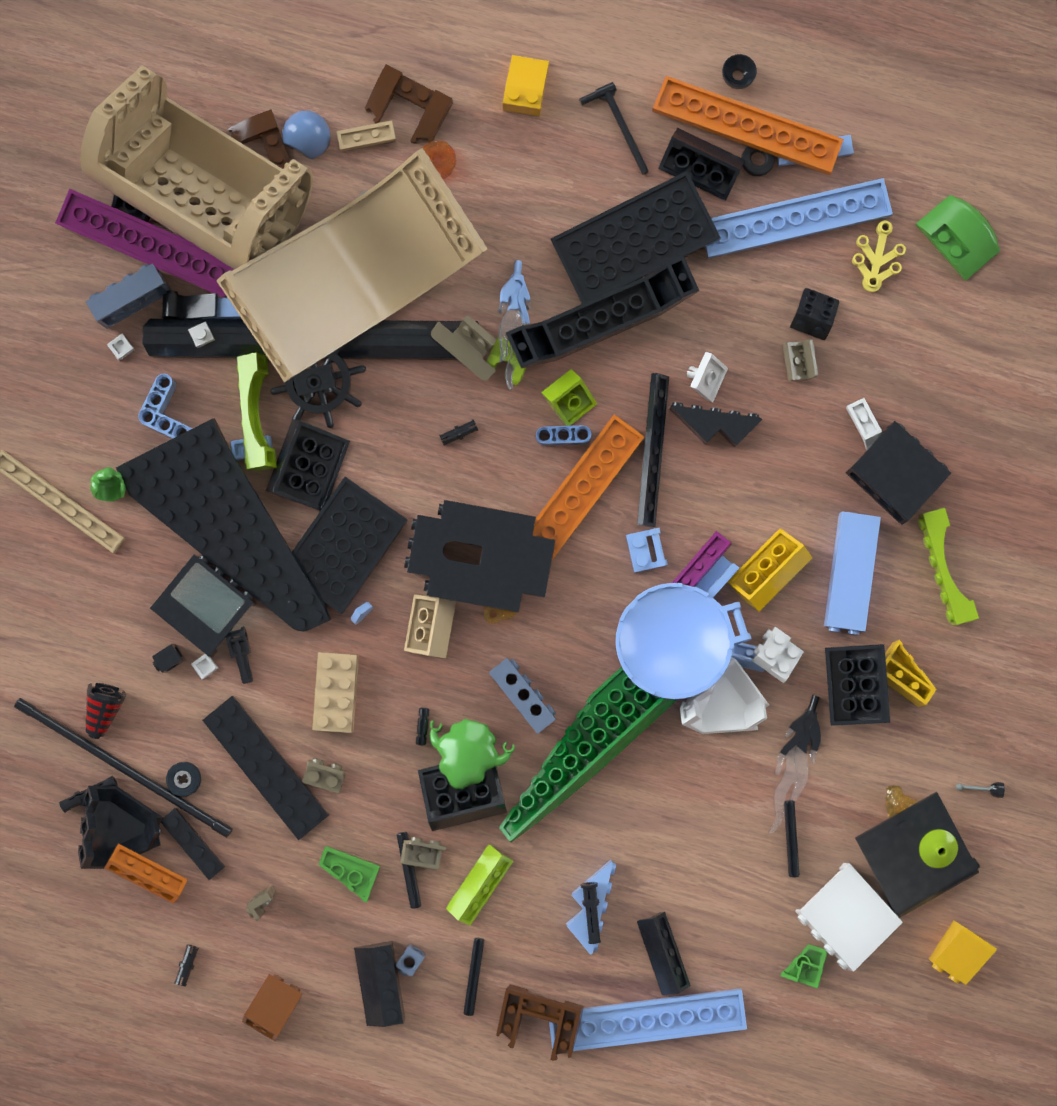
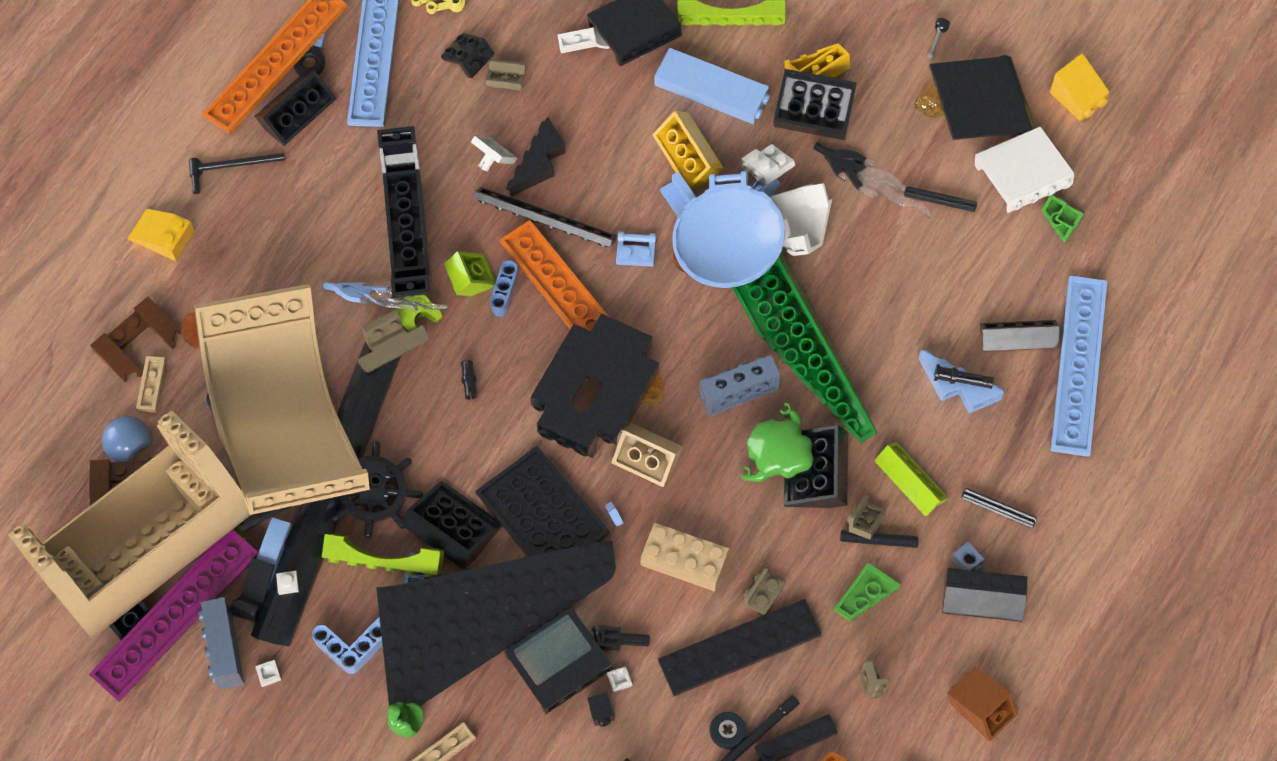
camera: 75 degrees left, 20 degrees down
(422, 726) = (742, 489): black axle -> none
(519, 1002) = (1055, 428): reddish brown wedge -> none
(635, 238) = (343, 178): black plate -> none
(703, 560) = (660, 200): magenta plate -> none
(739, 63) = (222, 48): black piece -> none
(932, 843) = (981, 84): lime dish -> none

